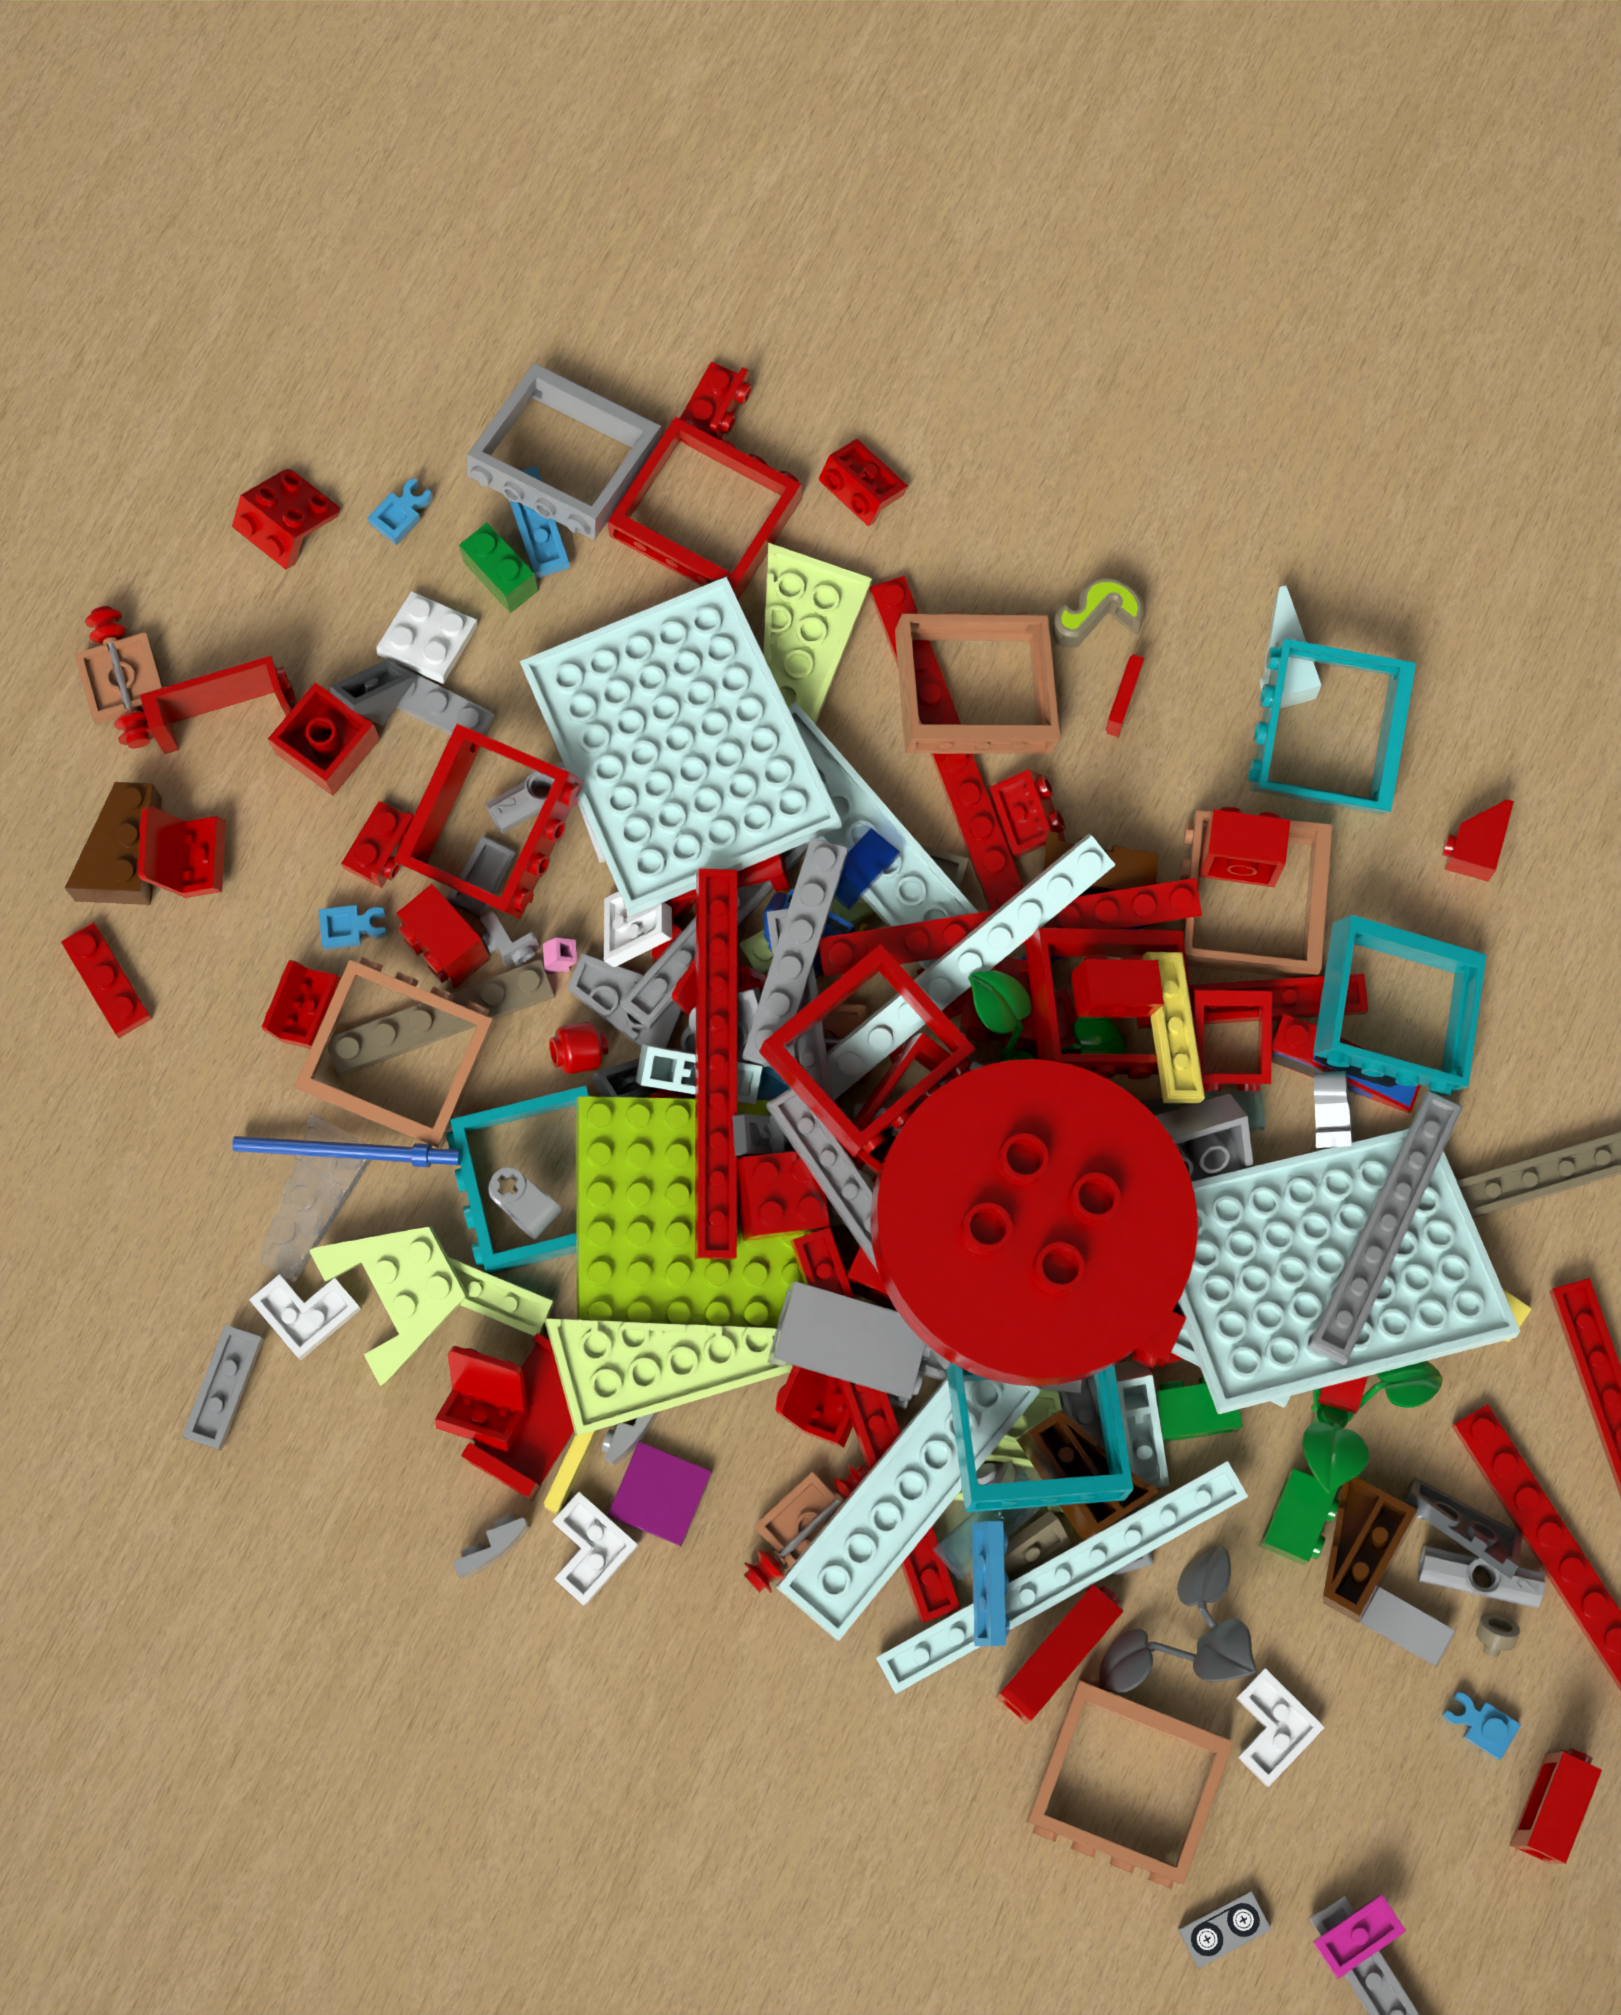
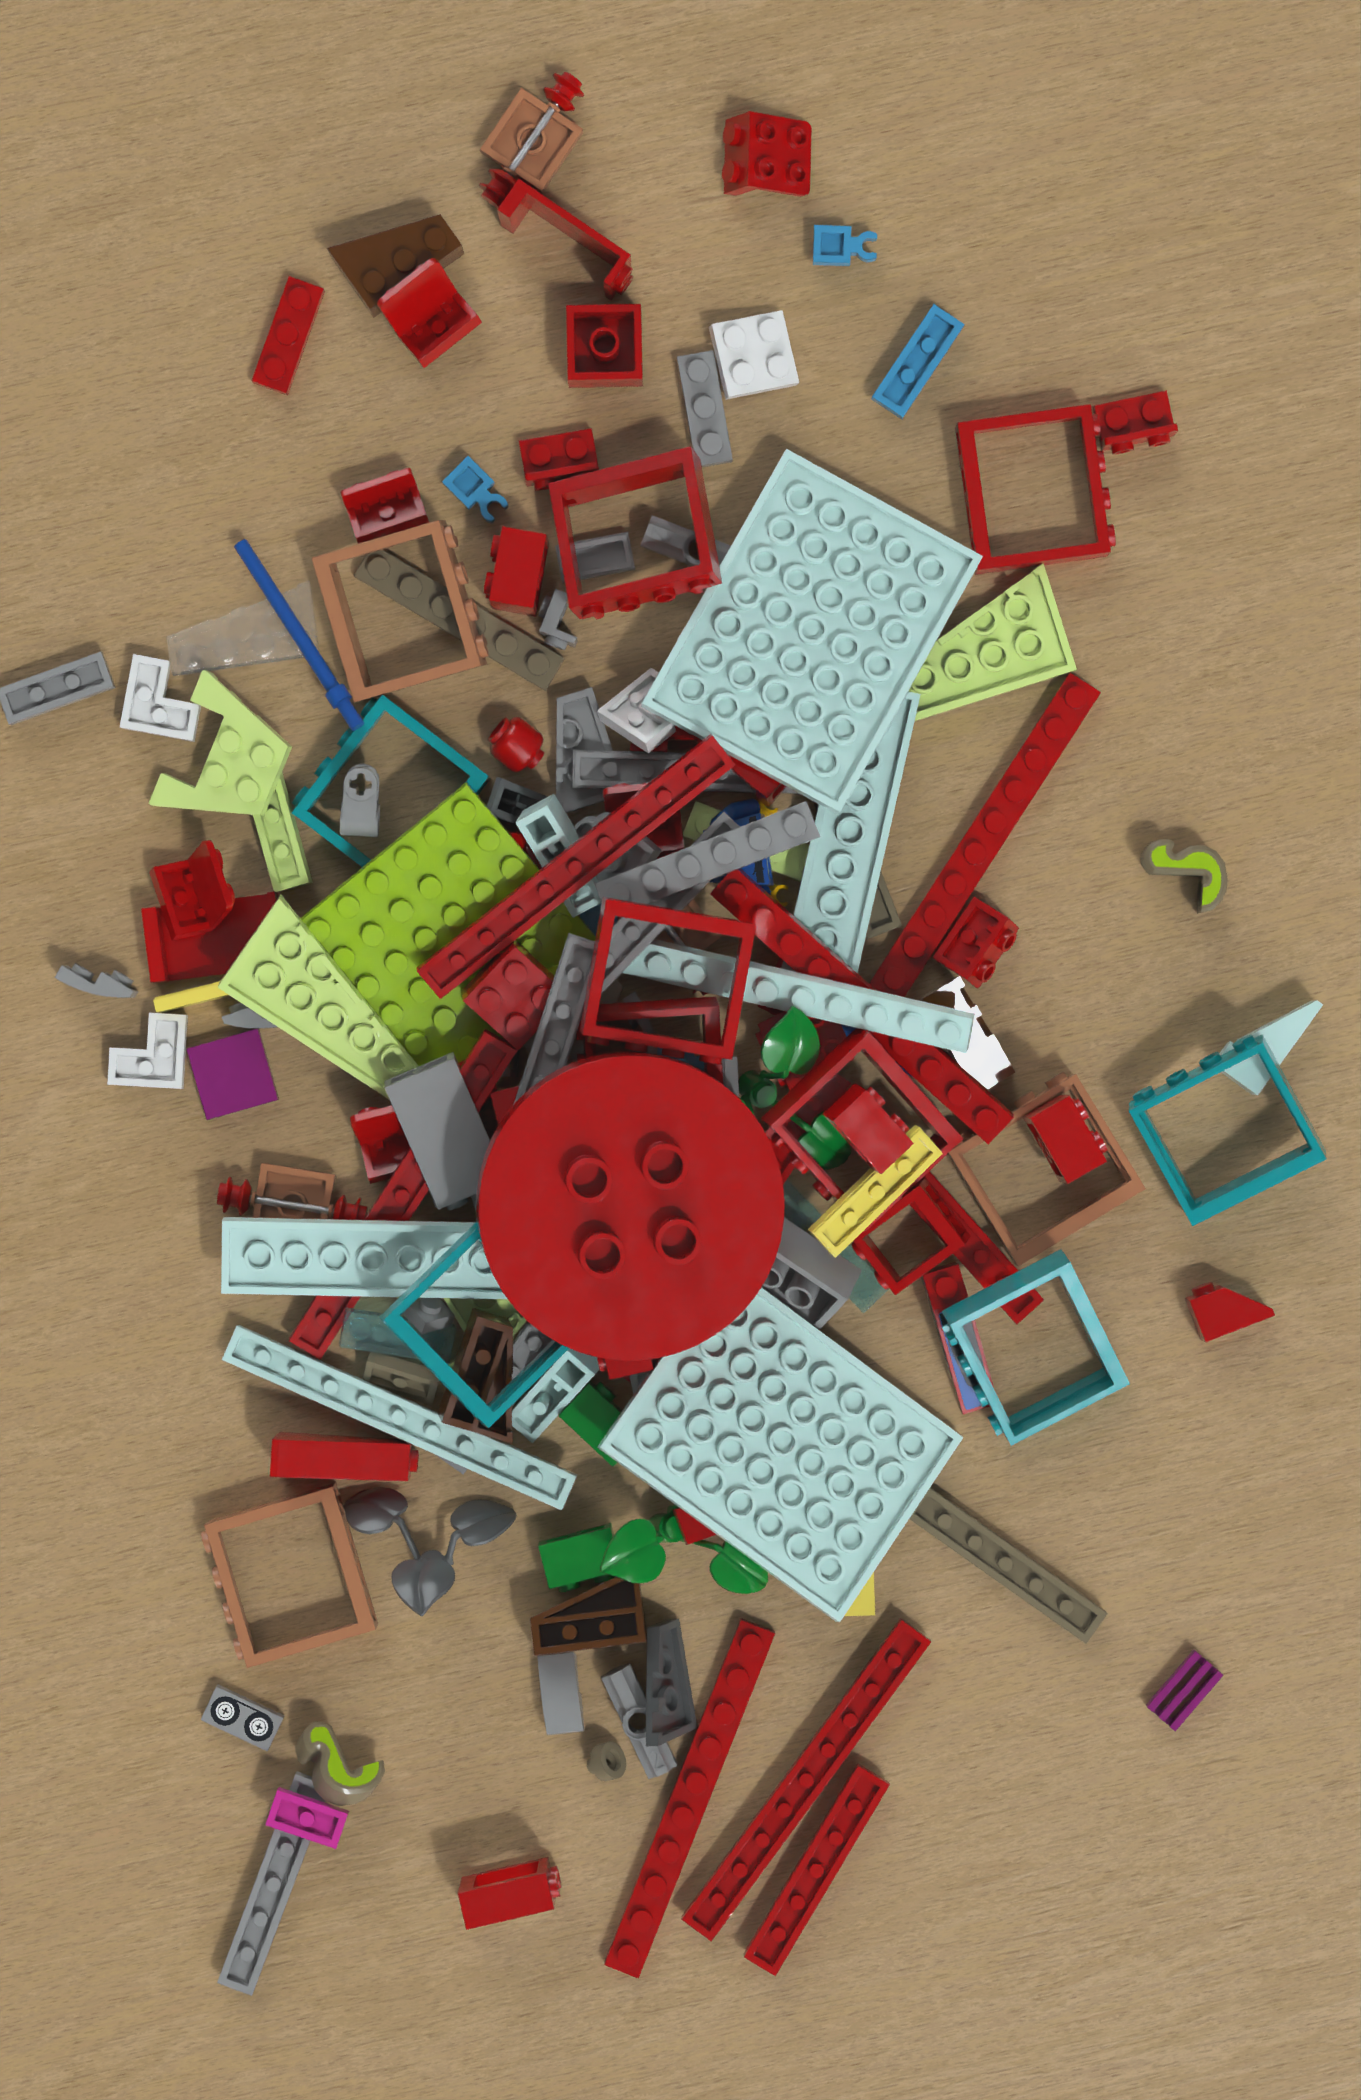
camera: 50 degrees right, 15 degrees up
(374, 690) = (672, 353): dark grey slope -> none
(498, 567) = (854, 364): green brick -> none
(552, 955) = (573, 665): bright pink piece -> none
(584, 407) = (1047, 330): light grey window -> none
(758, 1136) = (544, 942): dark grey slope -> none
(861, 481) = (1156, 595): red bracket -> none
(864, 866) = (825, 854): clear blue tile -> none
(979, 738) = (1105, 792): nougat window -> none
(989, 1583) = (348, 1370): dark azure plate -> none
(1124, 695) = (1133, 944): red tile -> none
(1286, 1731) = (419, 1658): white plate -> none
(1330, 1881) = (331, 1772): none -> dark tan animal
(1332, 1109) = (911, 1357): leg -> none
(1385, 1228) = (846, 1464): light grey tile -> none
(1487, 1727) = (533, 1802): dark azure plate -> none

